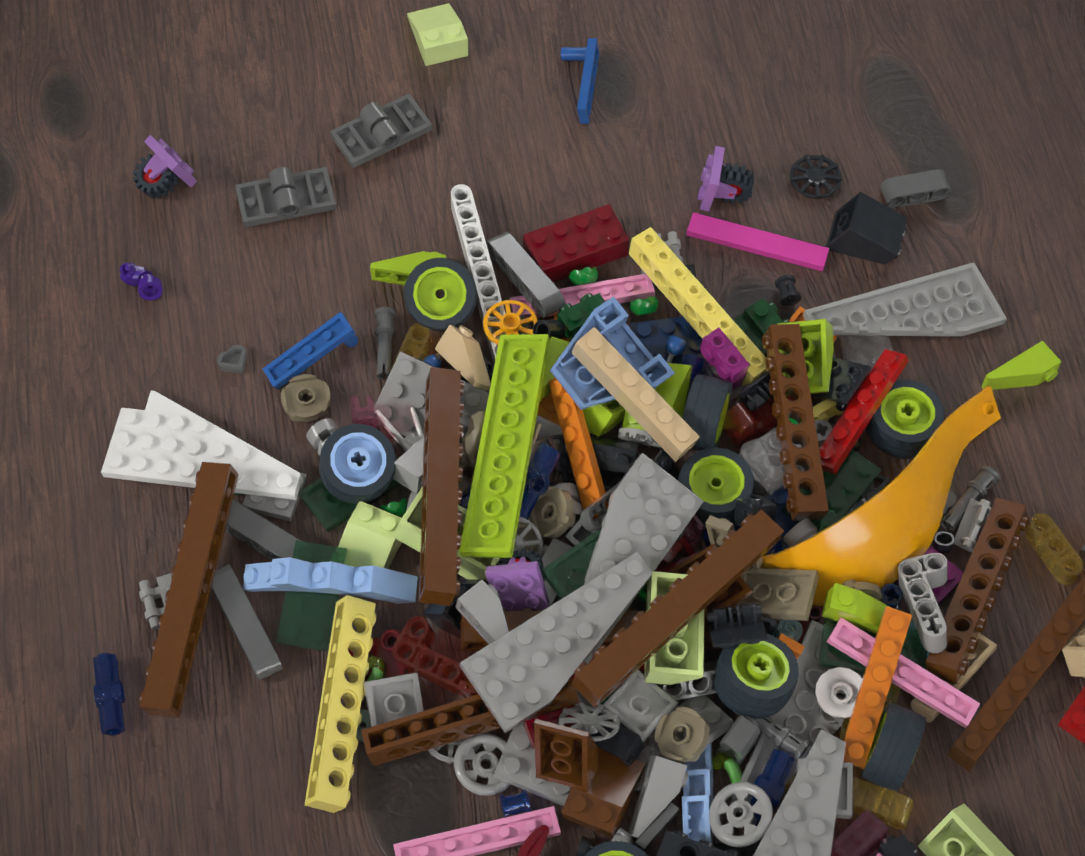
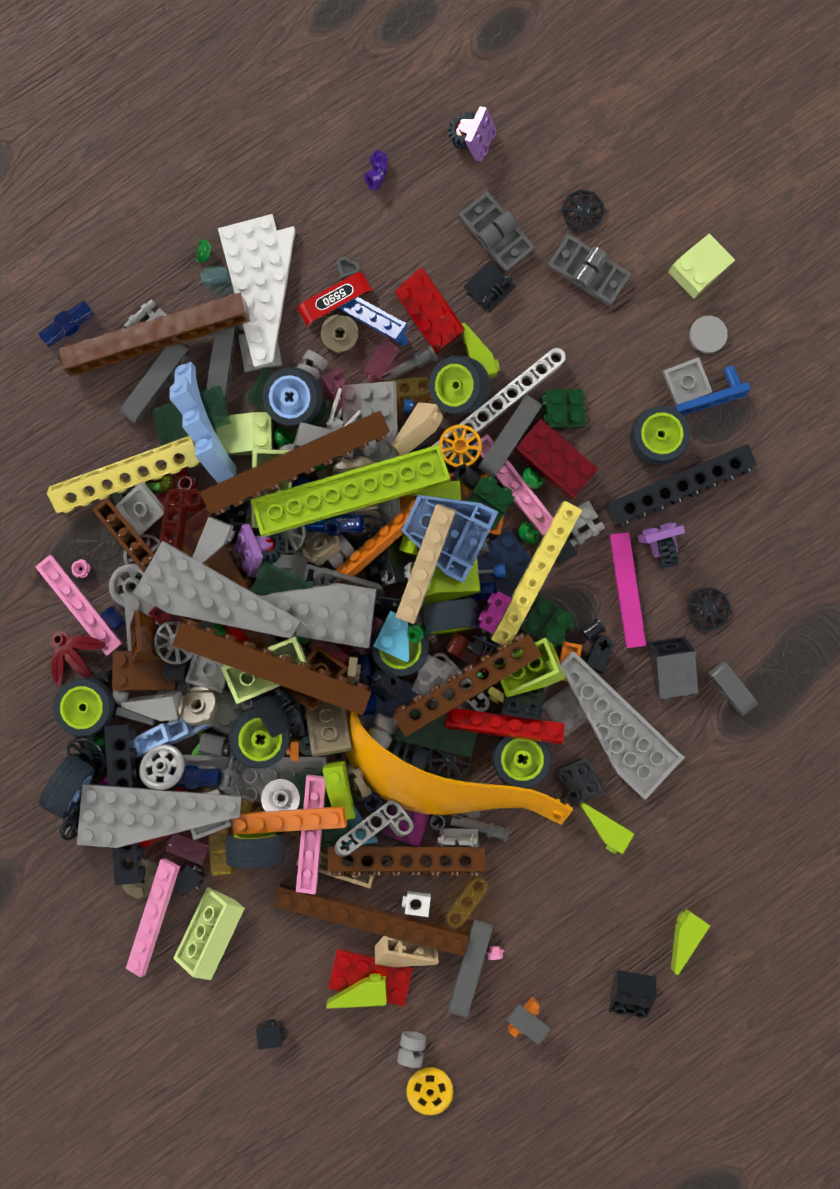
camera: 65 degrees right, 25 degrees up
(118, 498) = (203, 251): none -> green plate
(156, 499) = (214, 276): none -> clear light blue brick
(260, 389) = (333, 297): none -> red sticker
(311, 110) = (583, 210): none -> black wheel
(328, 292) = (429, 310): none -> red plate
(342, 228) = (490, 286): none -> black hinge
(361, 367) = (381, 359): none -> clear pink hinge
(427, 811) = (75, 568): none -> bright pink plate
(515, 57) = (708, 334): none -> light grey tile
(520, 215) = (564, 409): none -> dark green plate
(556, 94) = (687, 381): none -> light grey plate
(602, 138) = (671, 428): none -> wheel
(667, 146) = (742, 456): none -> black brick
(702, 451) = (419, 632): none -> green plate
(702, 476) = (394, 637): none -> medium azure wing
(817, 294) = (597, 658): none -> black piece
(957, 374) = (579, 781): none -> black hinge
(1042, 597) = (423, 910): none -> white brick

